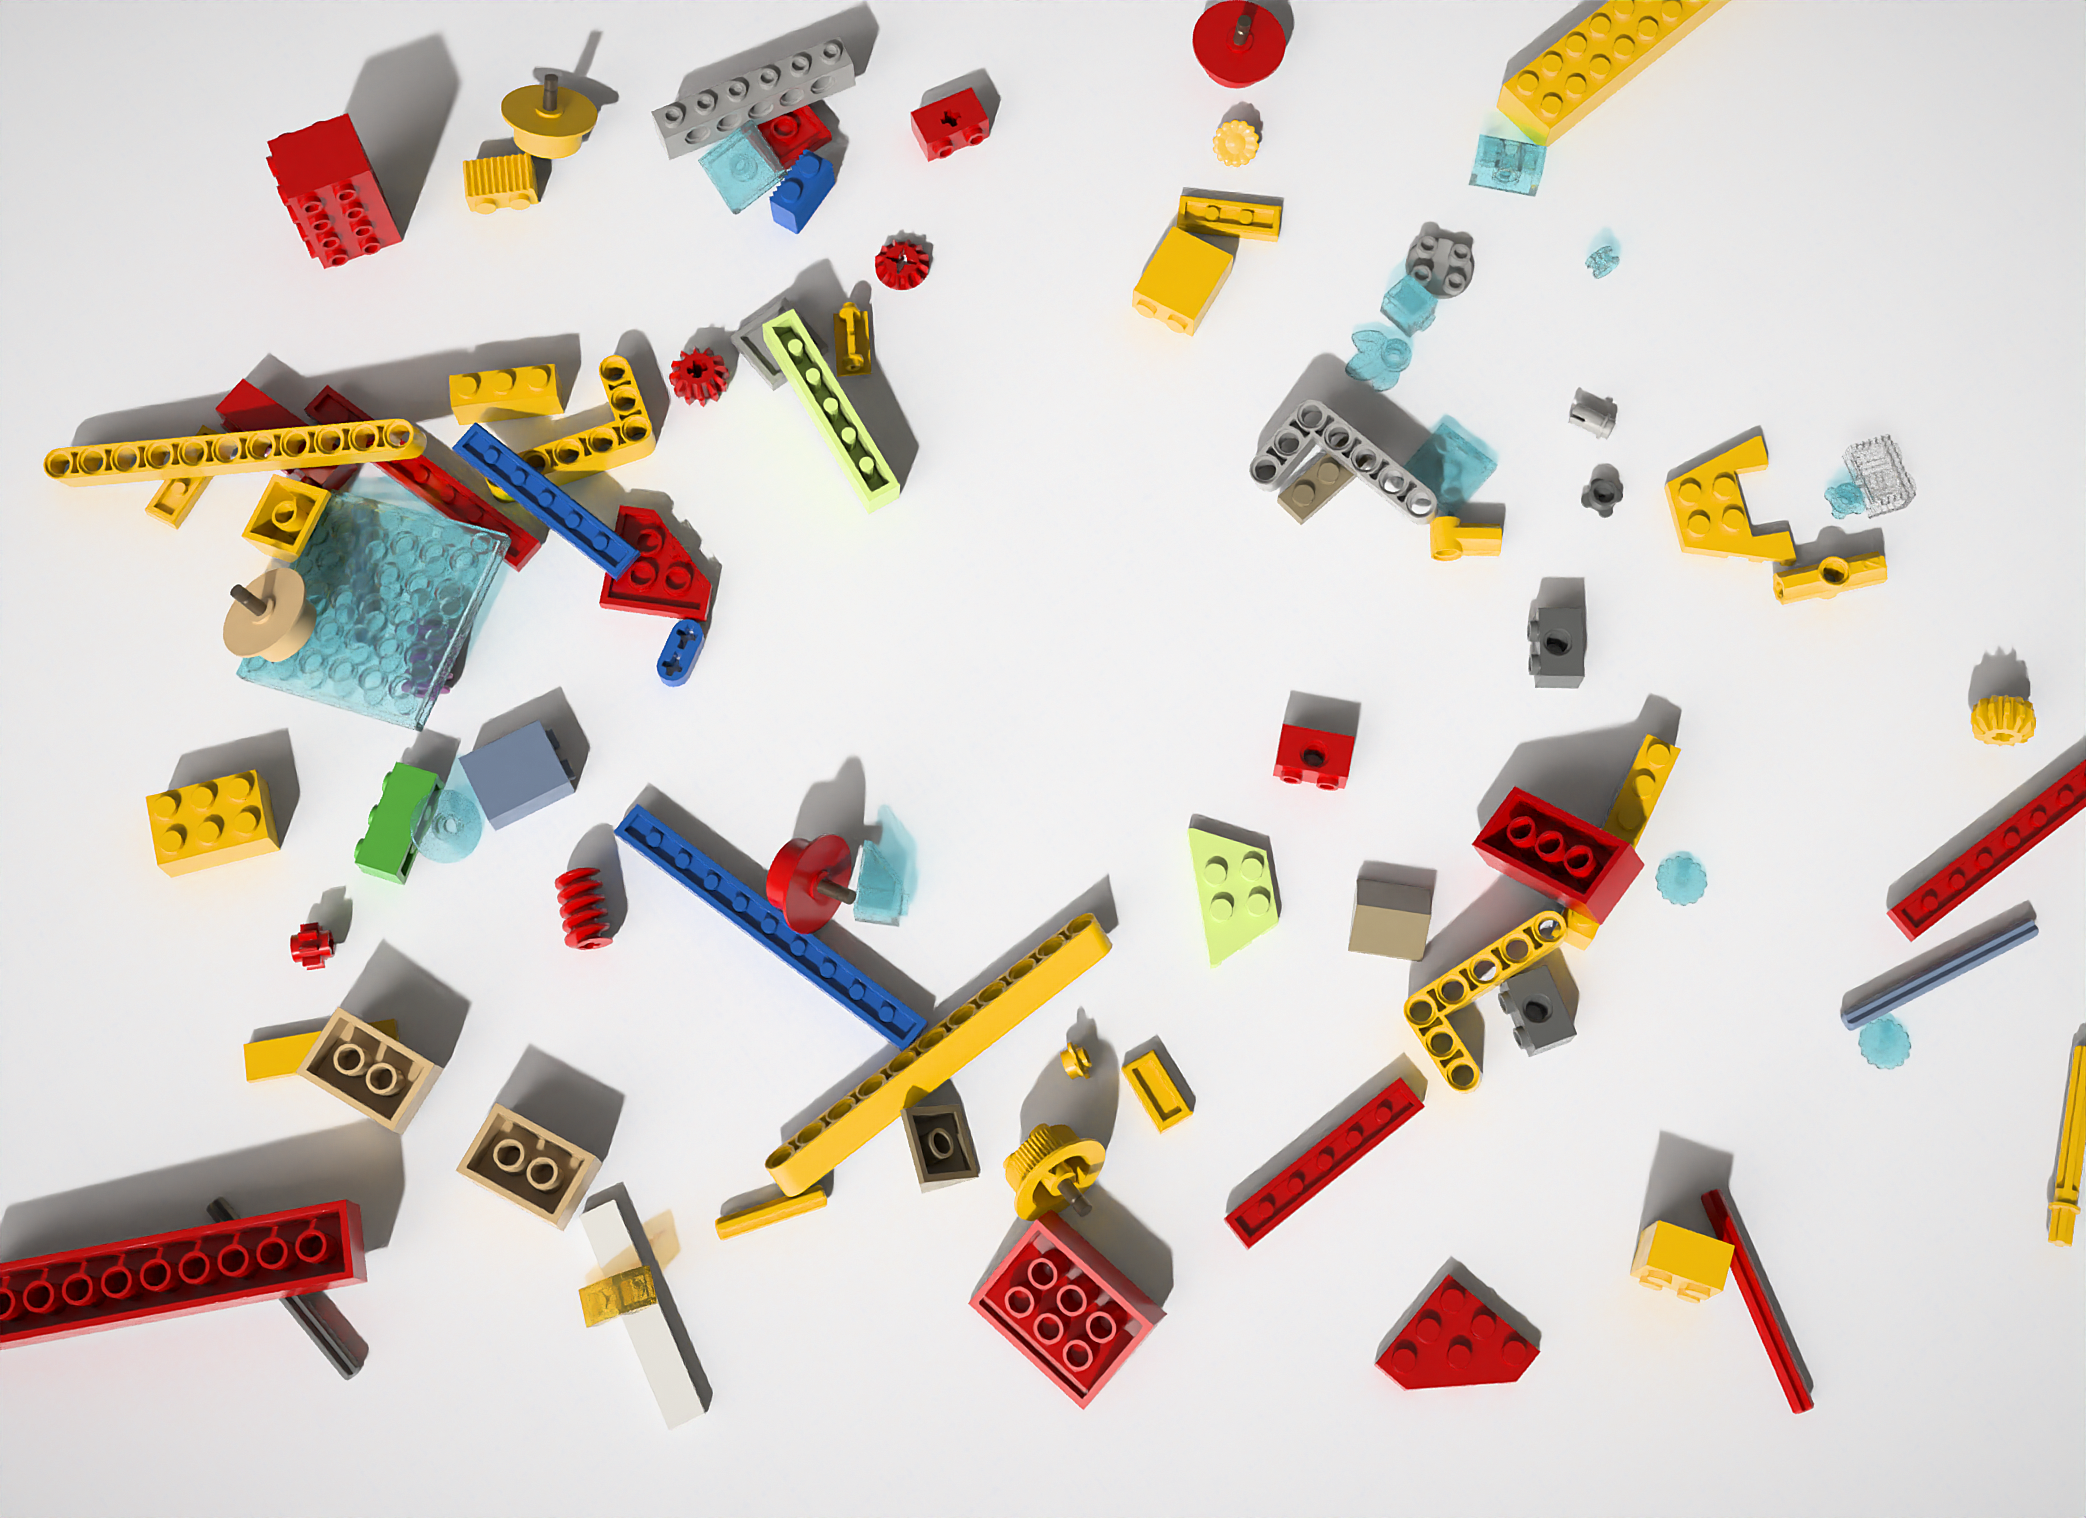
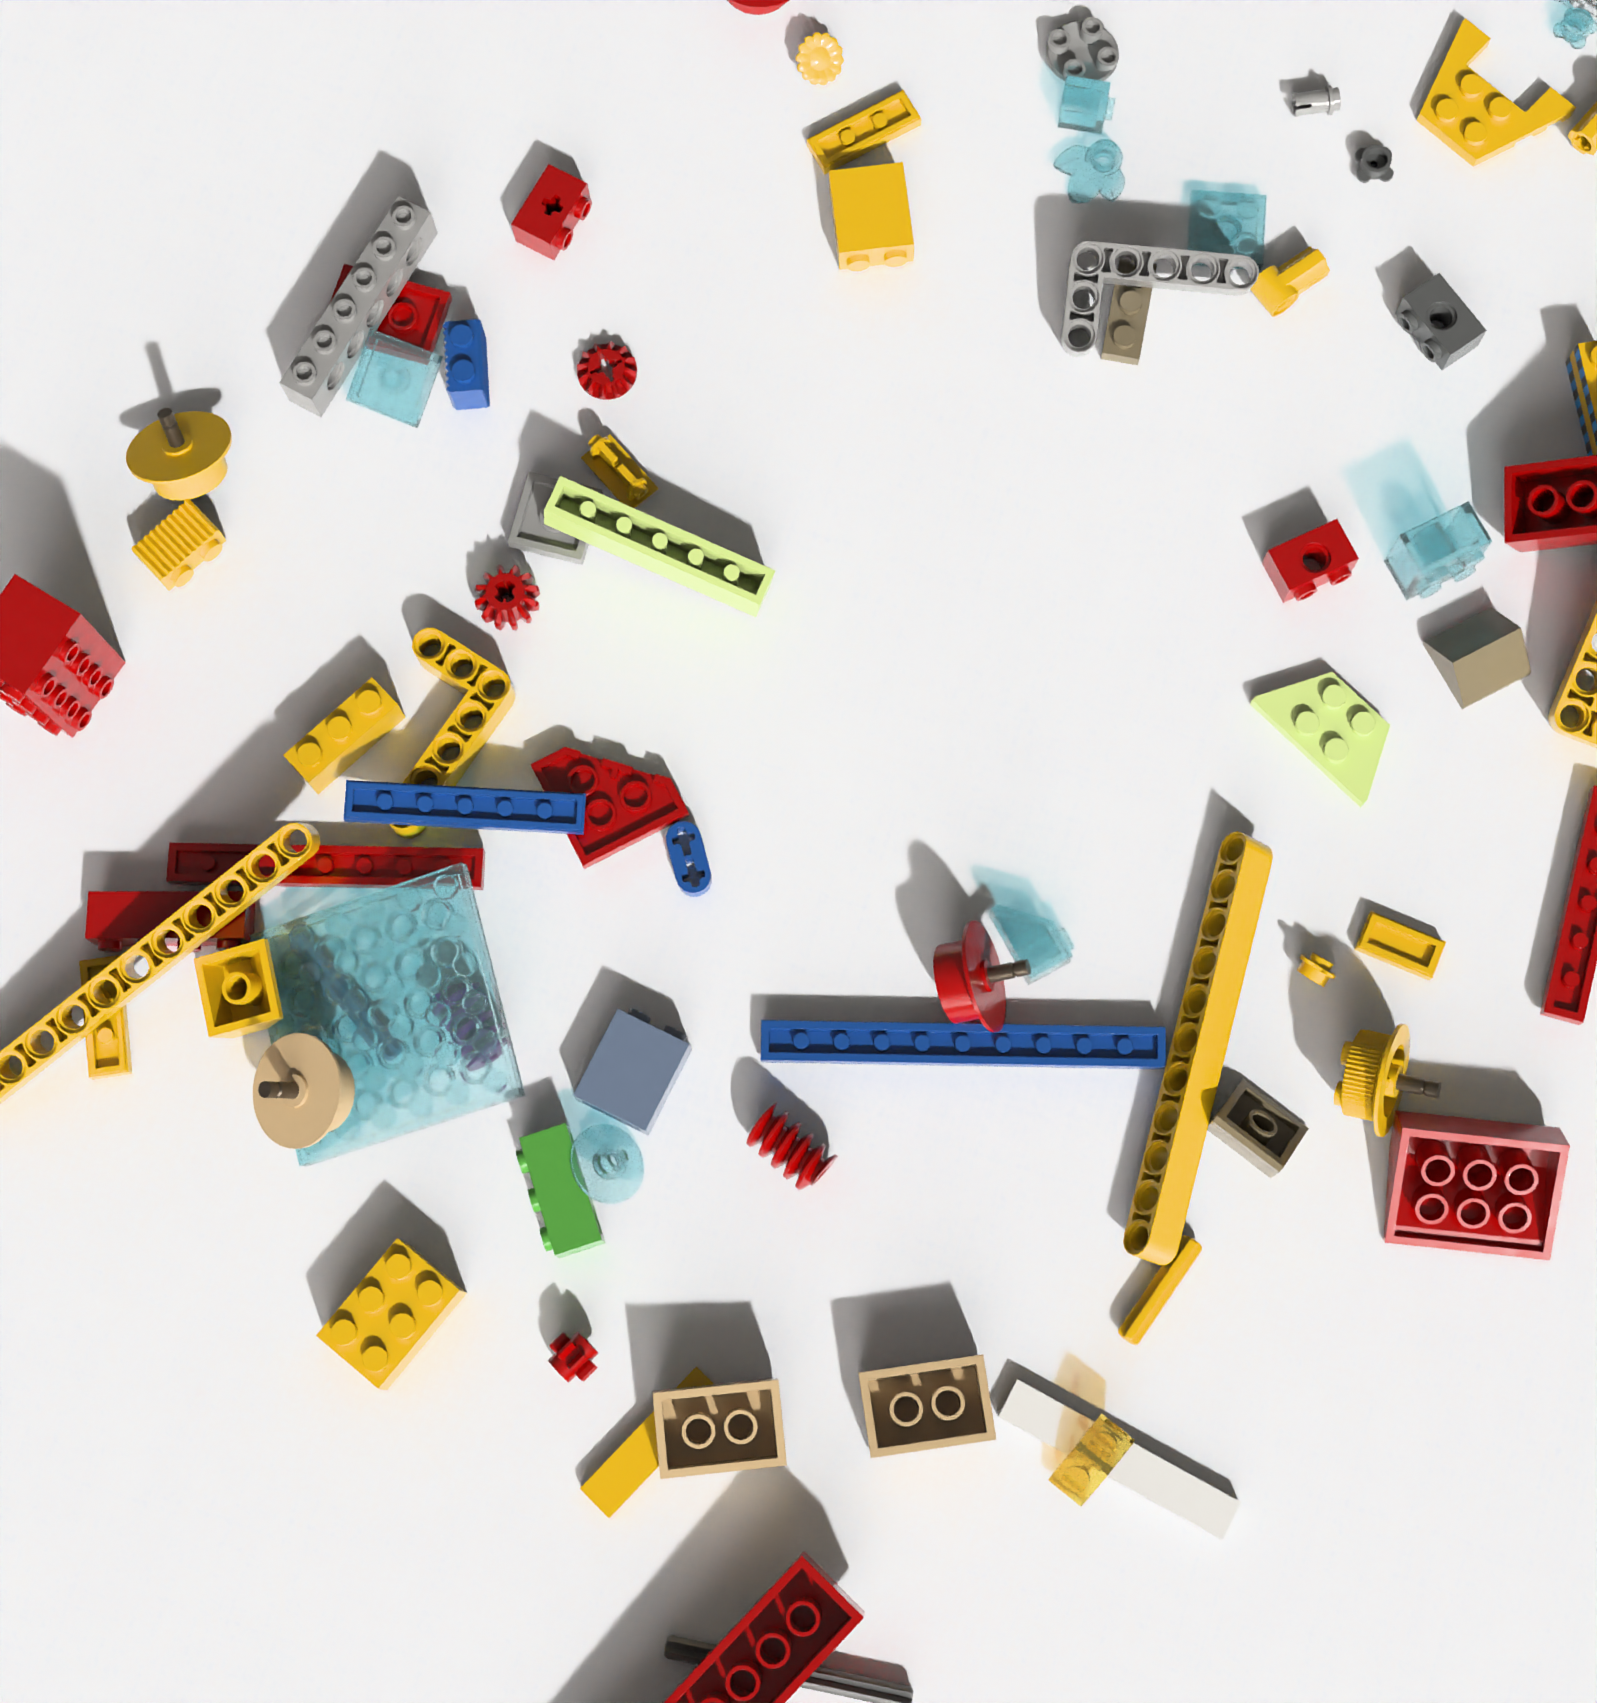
camera: 30 degrees left, 5 degrees up
(1413, 815) = (1438, 552): none -> clear light blue brick

